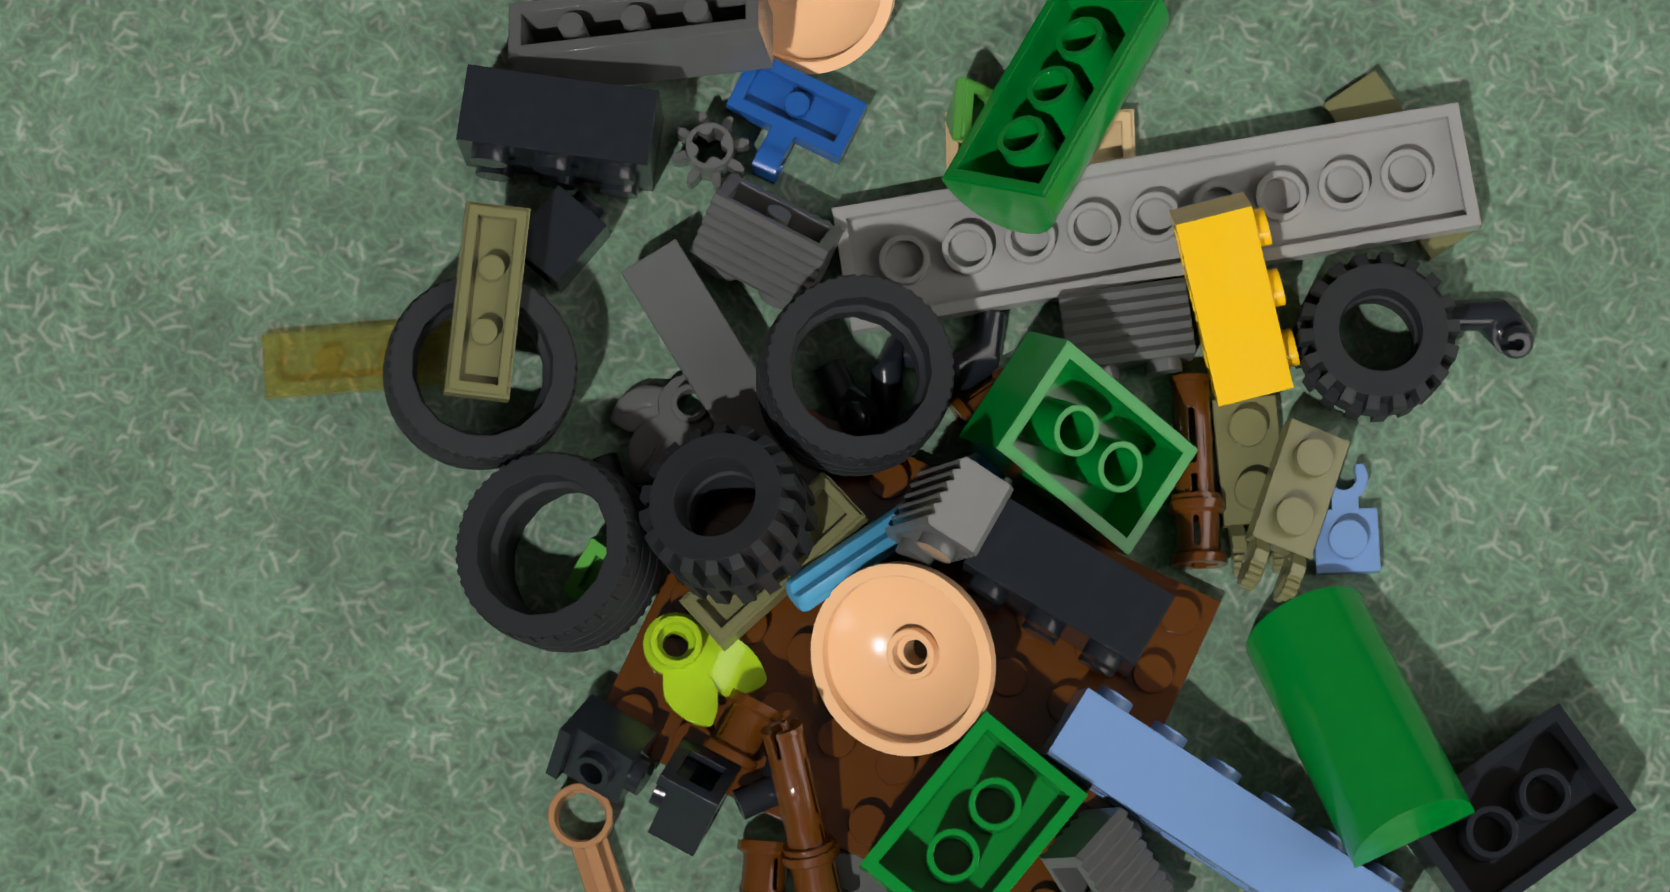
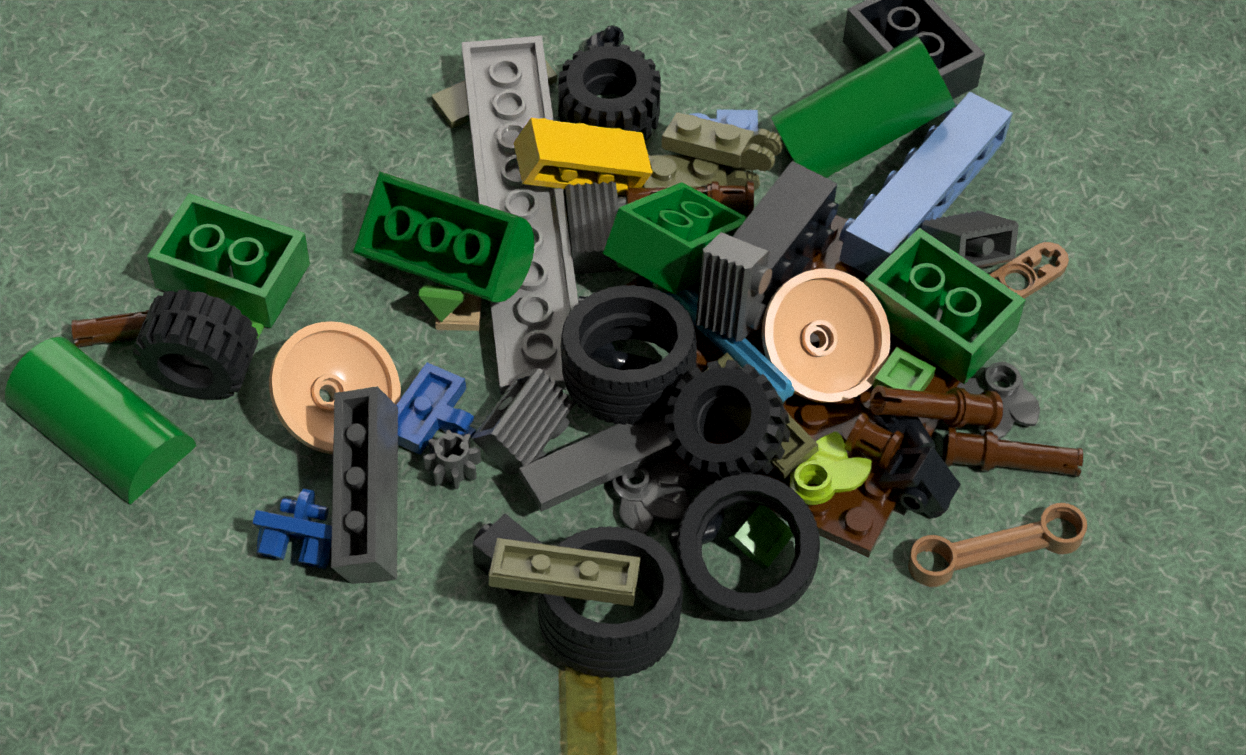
camera: 90 degrees left, 25 degrees down
(560, 130) = (432, 539): black brick -> none
(604, 750) = (888, 533): black brick -> none
(857, 777) = (904, 372): none -> bright green plate

